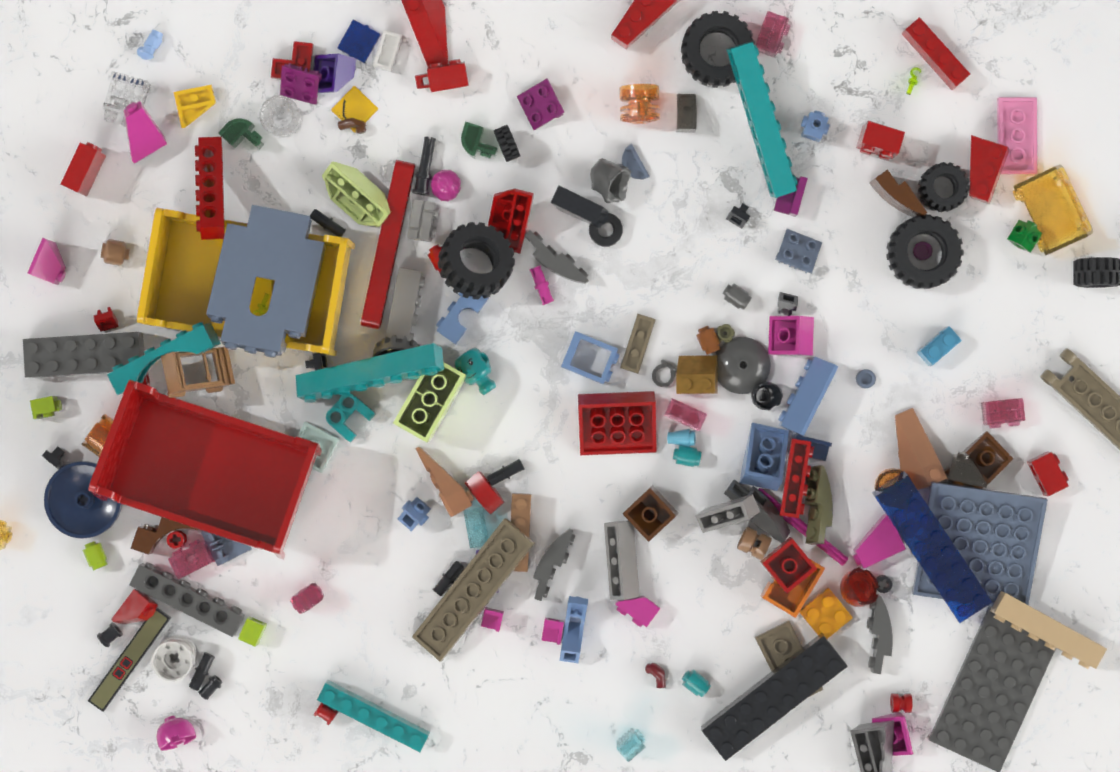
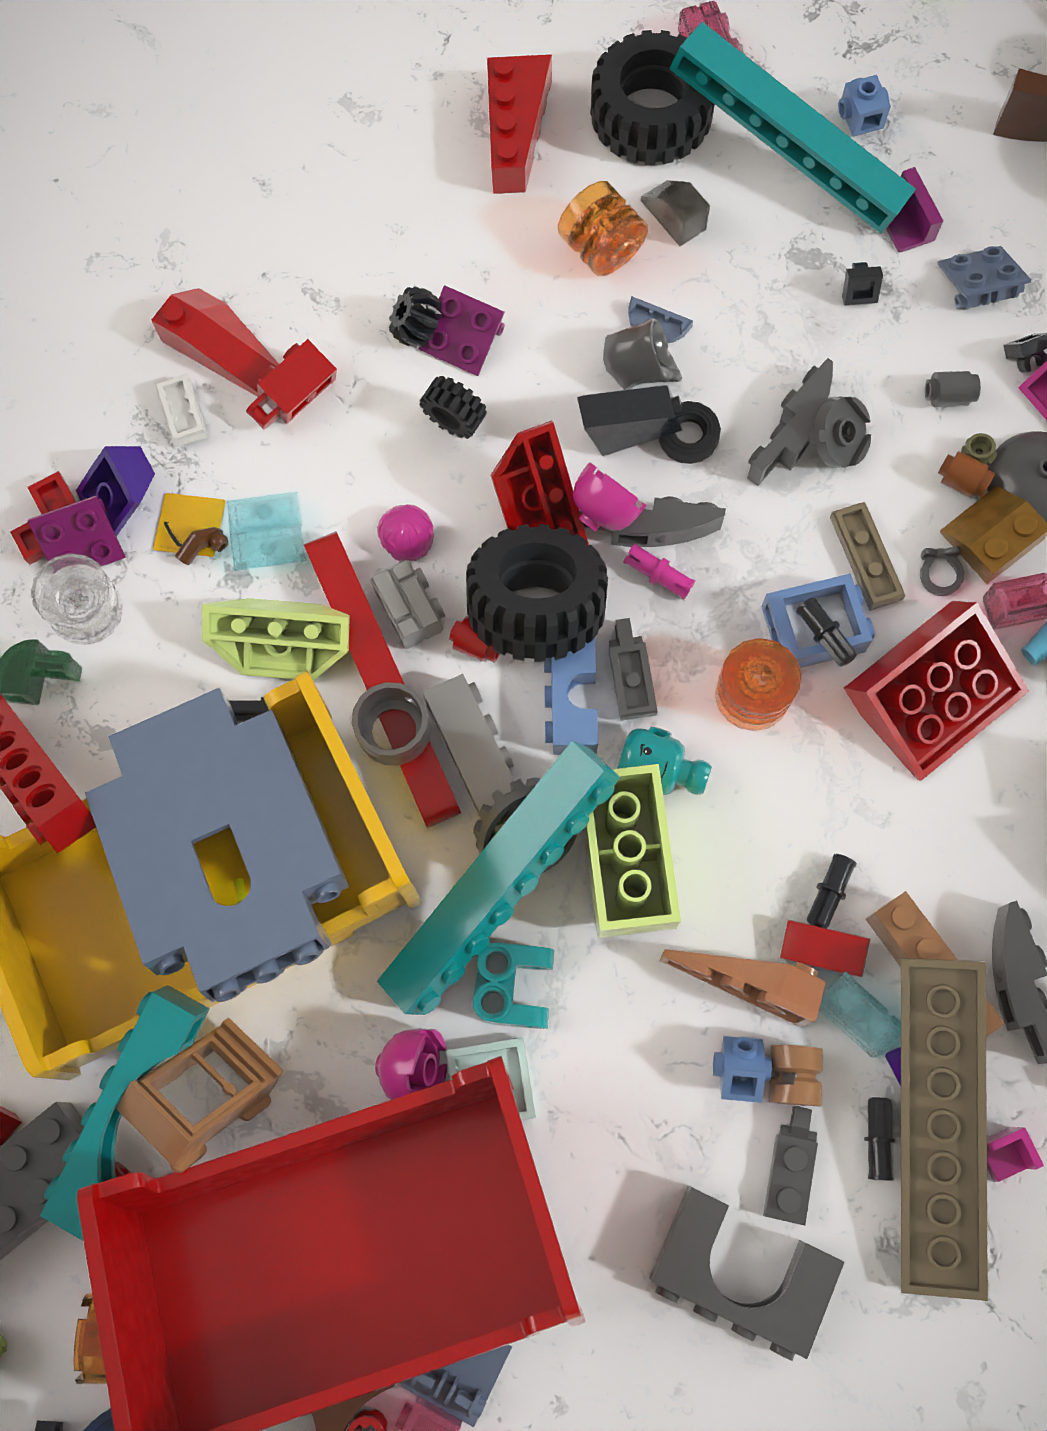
camera: 30 degrees left, 15 degrees down
(286, 418) = (411, 1062): none -> dark pink cylinder
(307, 598) = (674, 1364): clear pink gear -> none
(318, 362) = (398, 935): black tile -> none
(358, 41) = (131, 424): clear blue piece -> none
(359, 613) = (785, 1318): none -> dark grey arch
(360, 269) = (386, 698): none -> flat silver piece
(385, 139) = (266, 531): none -> clear light blue slope
(406, 564) = (792, 1169): none -> dark grey hinge
(424, 176) = (361, 540): black pin -> none
(433, 531) = (806, 1064): none -> medium nougat wheel
(471, 142) = (404, 448): clear green brick -> none
(494, 321) = (631, 673): none -> dark grey hinge
(522, 84) = (415, 317): none -> black gear
(529, 367) = (740, 694): none -> clear orange wheel
(535, 241) = (604, 501): none -> dark pink cylinder
(584, 367) = (826, 632): none -> black axle
(662, 259) = (798, 416): none -> dark grey slope
(662, 275) = (836, 415): none -> dark grey plate
(880, 140) = (968, 58): red brick -> none

